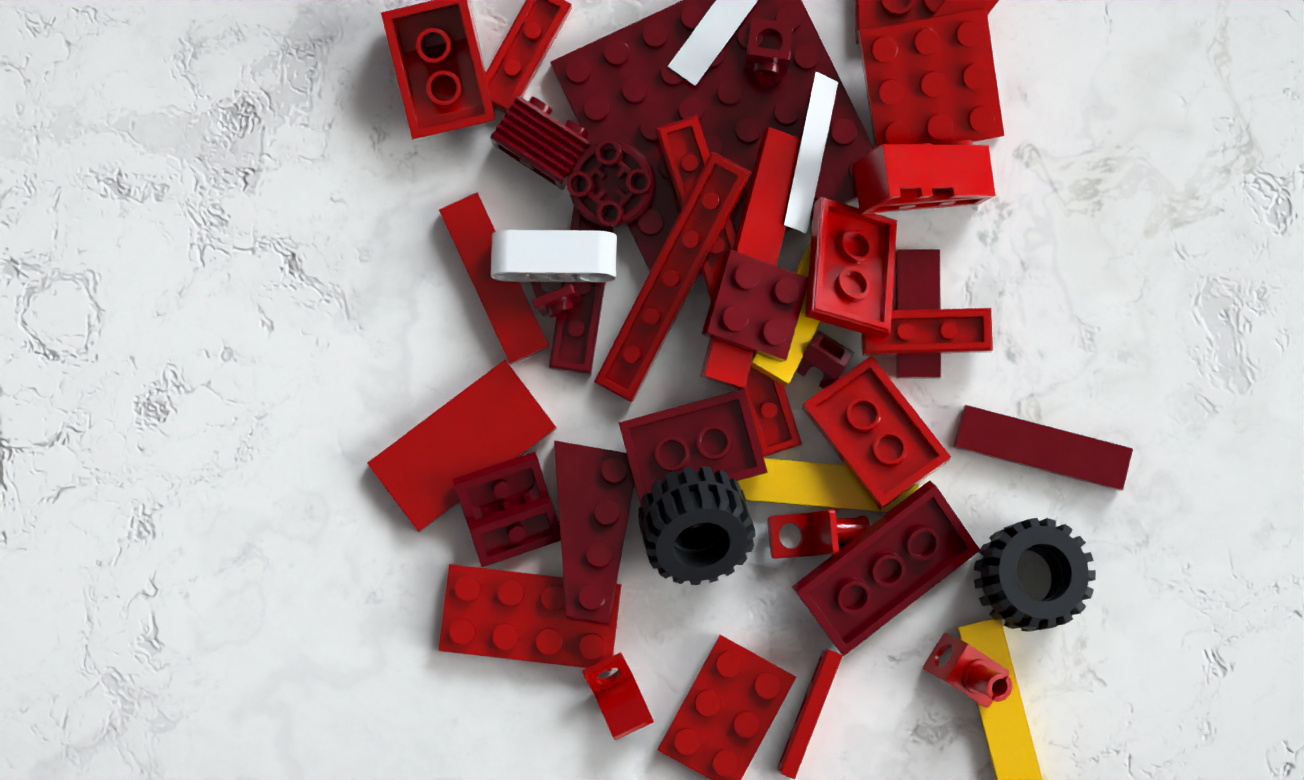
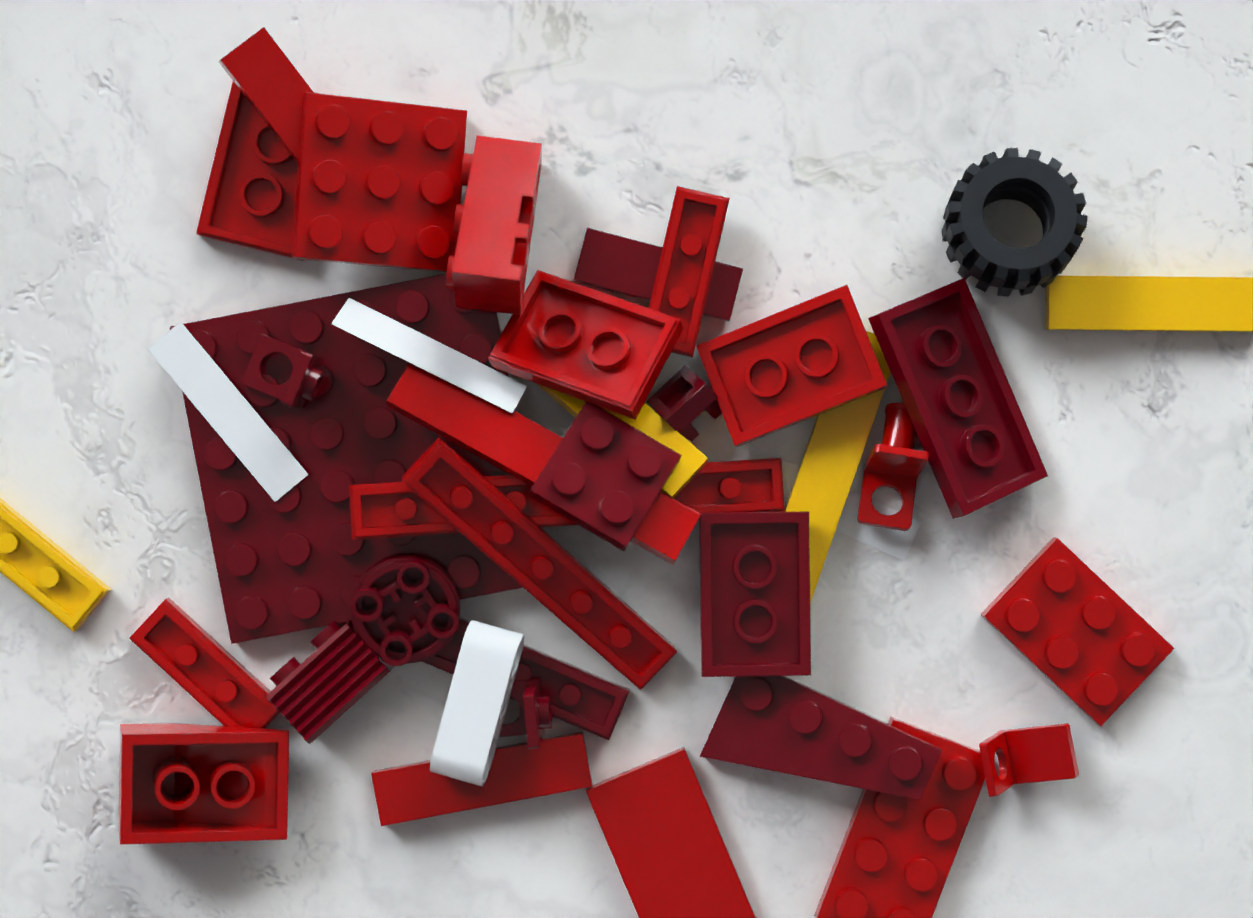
camera: 80 degrees left, 5 degrees up
(508, 509) = (768, 833): dark red slope -> none
(690, 500) = (852, 616): black tyre -> none
(809, 713) = (1105, 535): red tile -> none
(969, 671) = (1107, 330): red bracket -> none
(1043, 447) = (859, 167): dark red tile -> none

